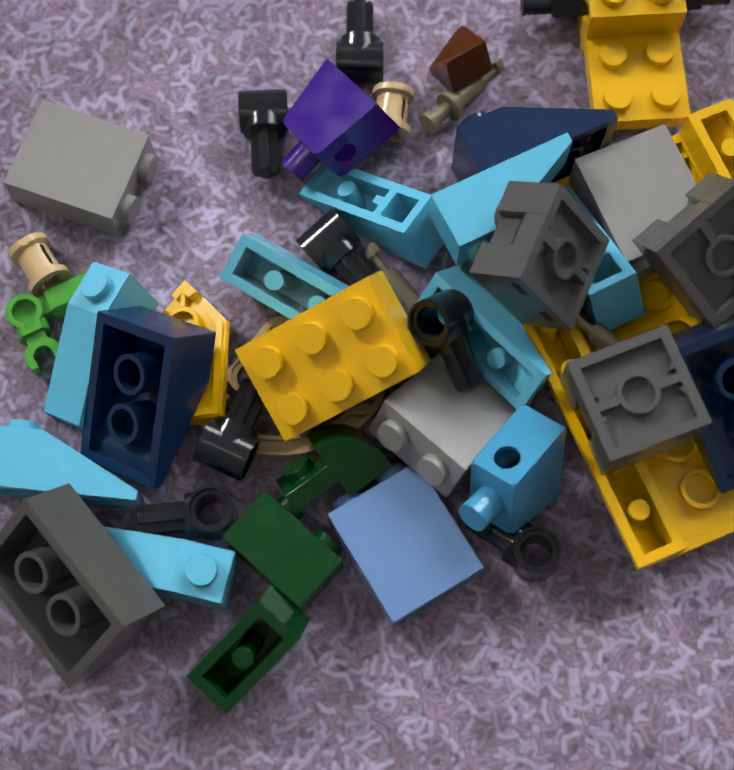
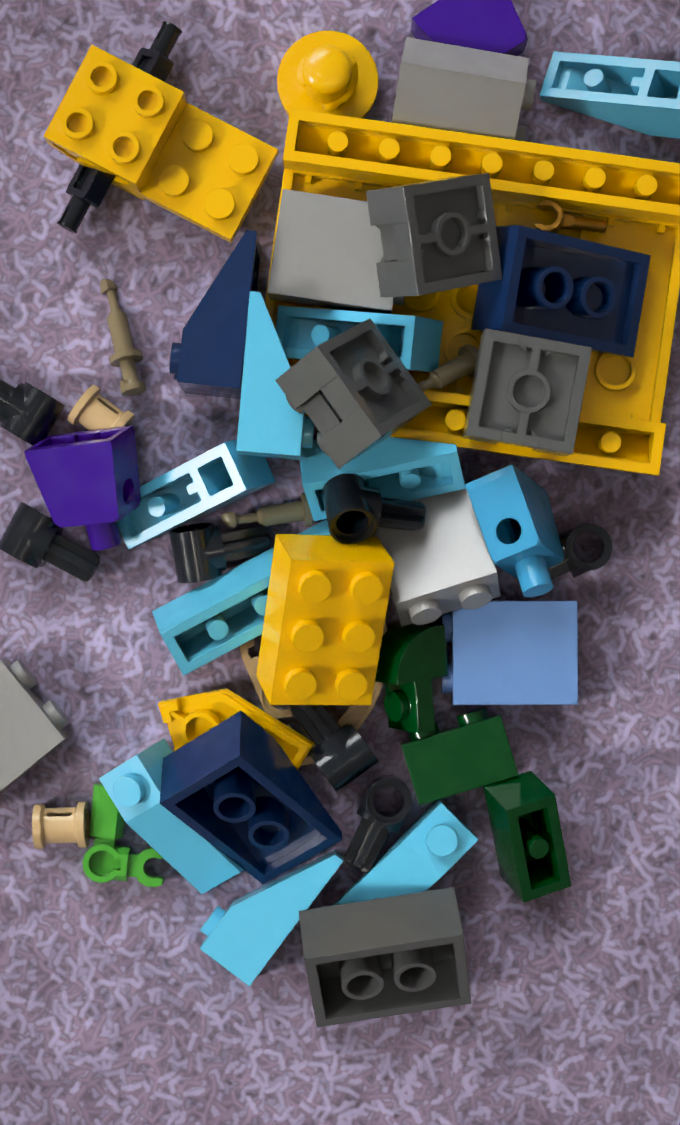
camera: 50 degrees left, 15 degrees up
(461, 60) = (88, 321): reddish brown slope -> none

